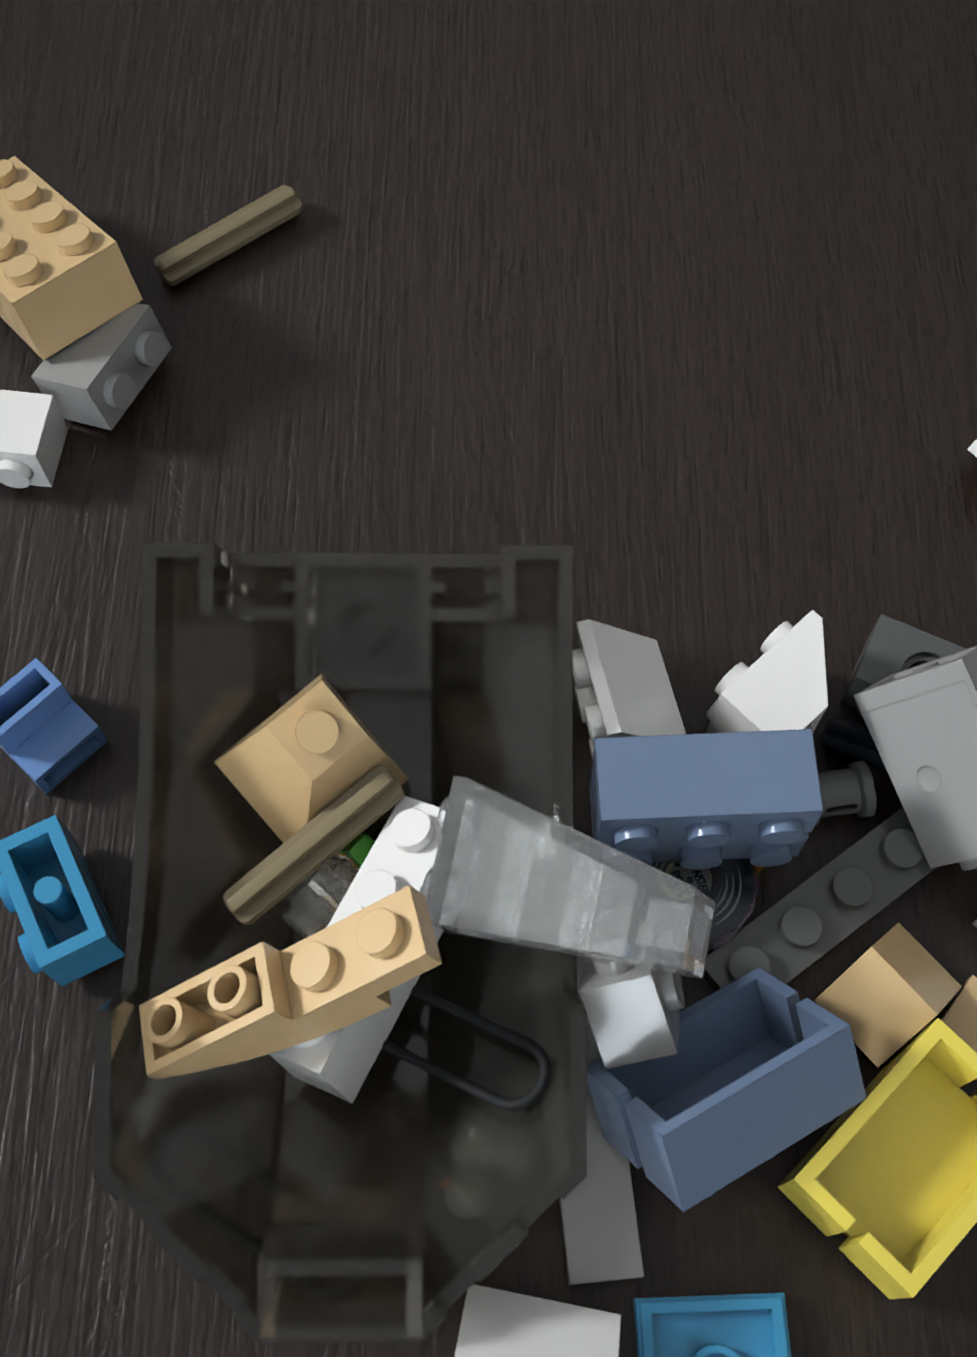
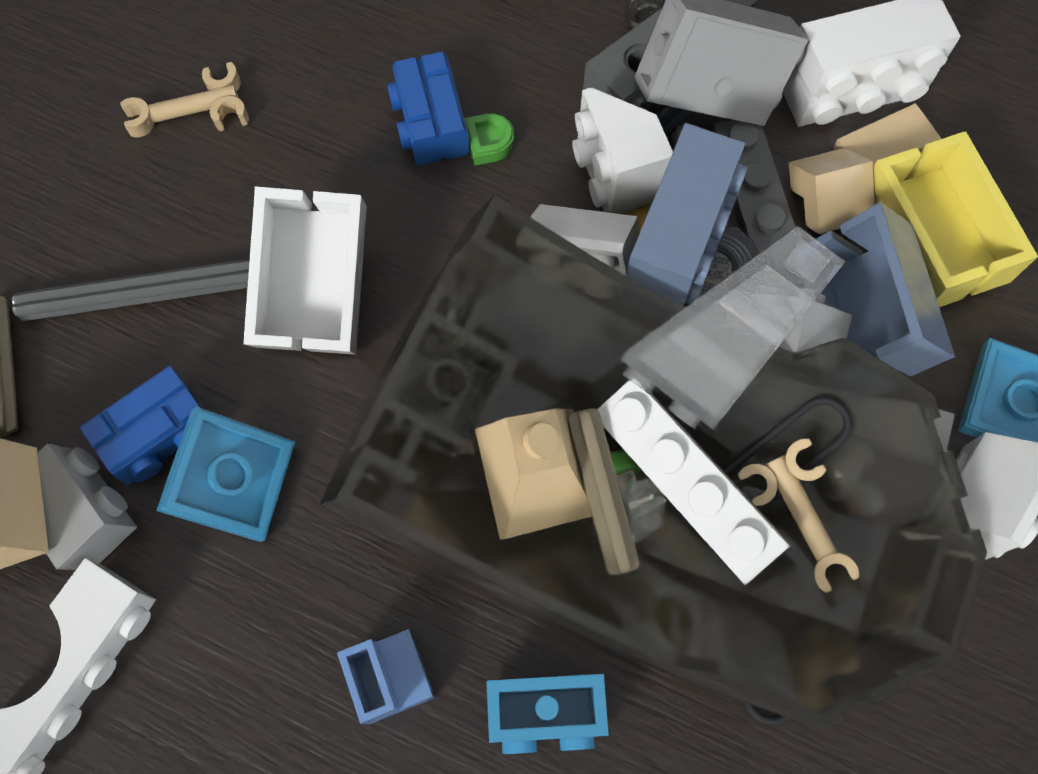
camera: 65 degrees left, 5 degrees up
(194, 479) = (226, 475): none -> dark azure tile
(219, 390) = (142, 427): none -> blue brick
(289, 996) = (731, 538): tan slope -> none
(385, 335) = (131, 290): none -> dark grey axle
(425, 1054) = (785, 475): none -> tan bar
(442, 442) = (305, 271): none -> white piece
(622, 278) = (219, 99): none -> tan bar
(729, 480) = (430, 109): none -> blue brick
(735, 562) = (489, 138): none -> bright green tile

